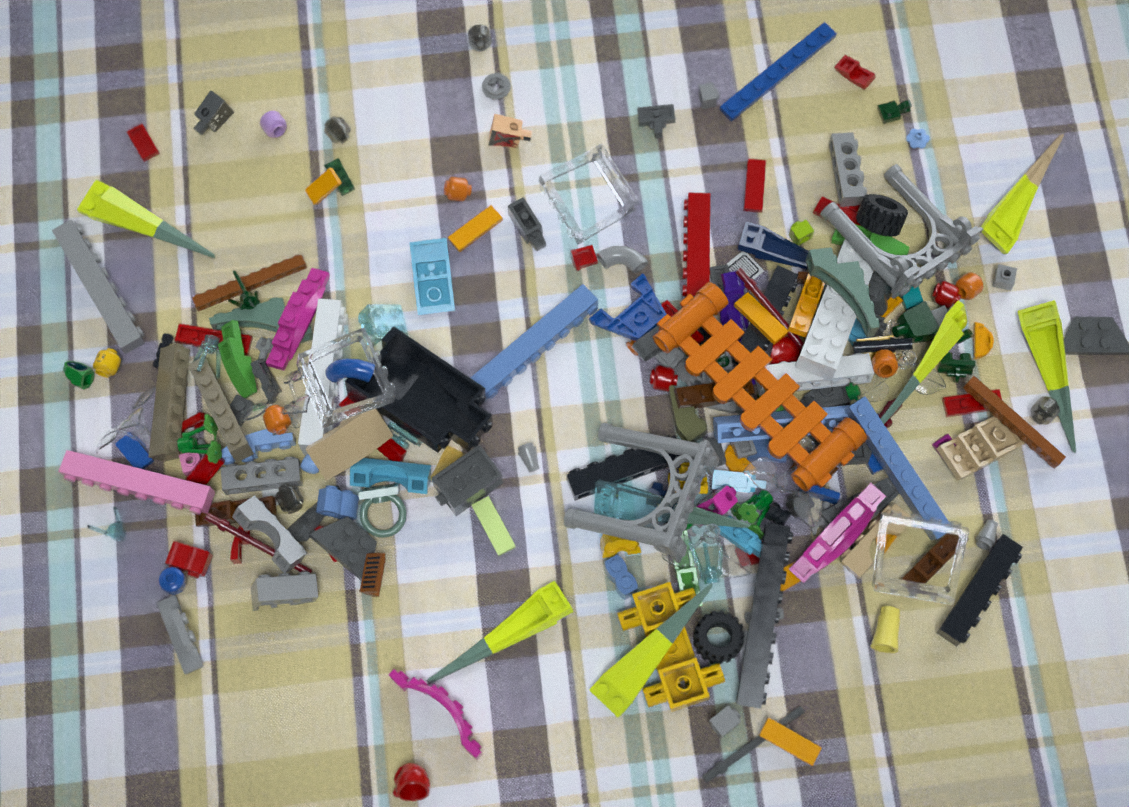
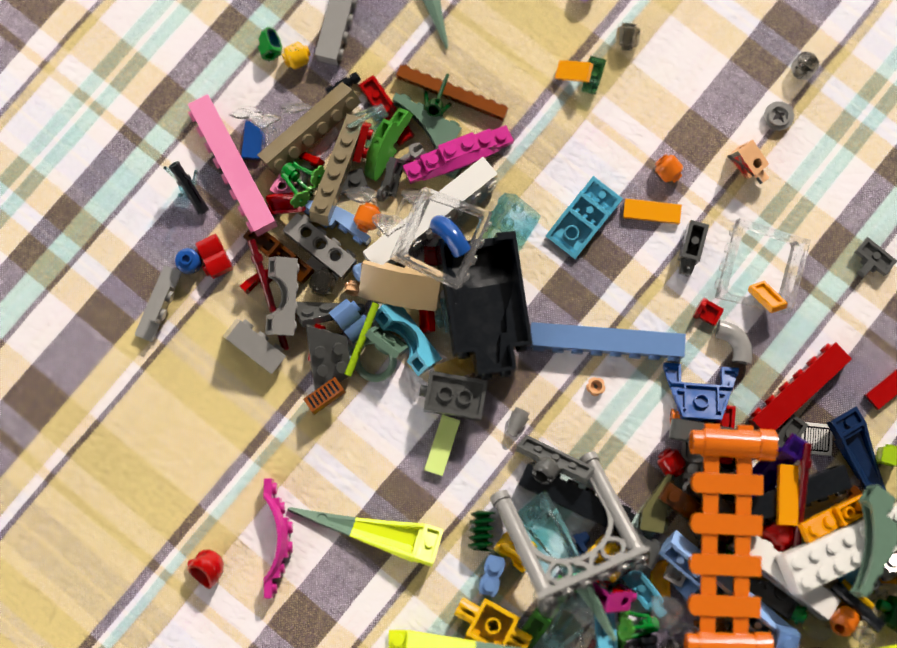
camera: 45 degrees right, 10 degrees up
(115, 526) = (185, 182): none -> black pin
(216, 366) = (365, 134): none -> red plate
(316, 482) = (352, 288): none -> light nougat plate
(359, 507) = (361, 340): none -> lime bar
(559, 375) = (595, 391): none -> light nougat plate
(581, 554) = (481, 530): none -> dark green piece
(582, 457) = (553, 462): none -> dark grey plate
(612, 207) = (767, 297): none -> light orange tile

